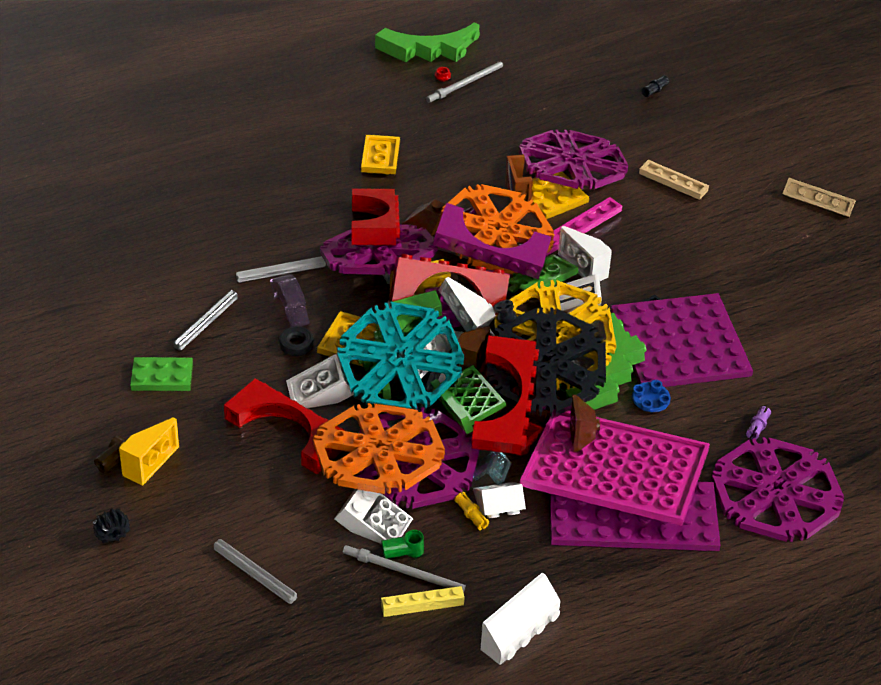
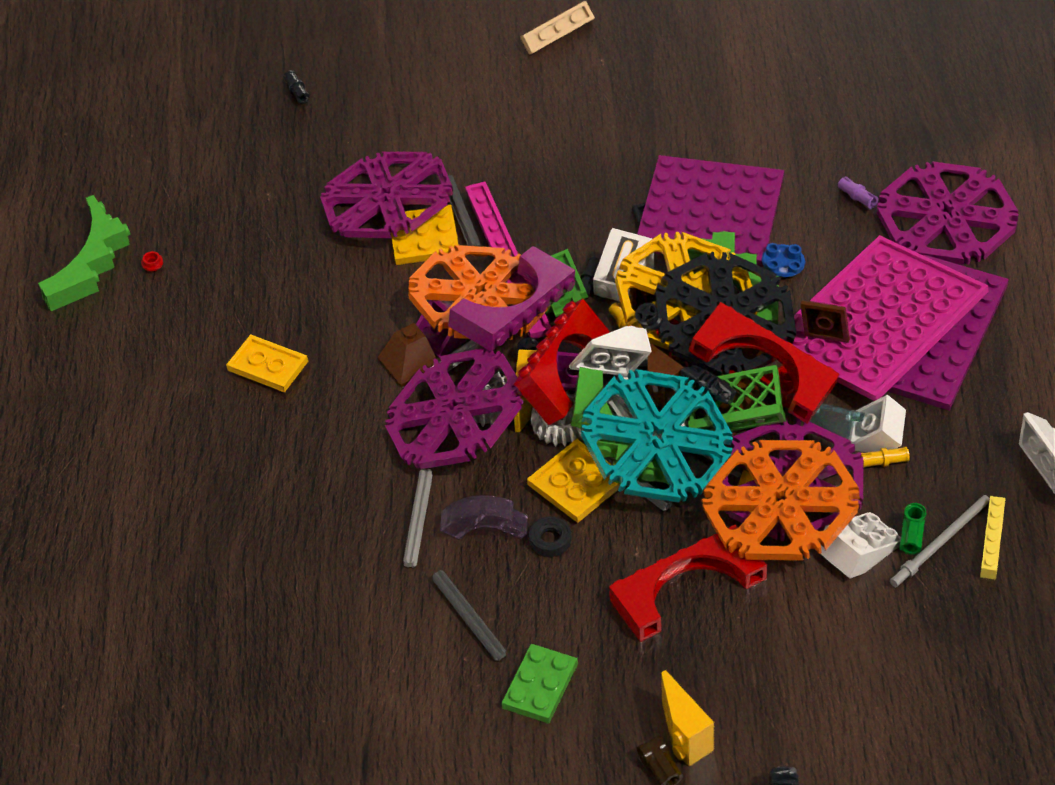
camera: 60 degrees left, 5 degrees up
(255, 571) = (893, 673): light grey axle -> none
(320, 384) = (638, 531): white slope -> none
(380, 230) = (364, 383): red arch -> none
(441, 93) = (186, 273): light grey bar -> none
(470, 372) = (717, 387): none -> black hinge
(514, 177) = (400, 256): dark orange panel -> none
(585, 205) = (462, 216): none -> dark grey axle
(585, 252) = (556, 232): white slope -> none
(674, 179) = (462, 127): tan plate -> none

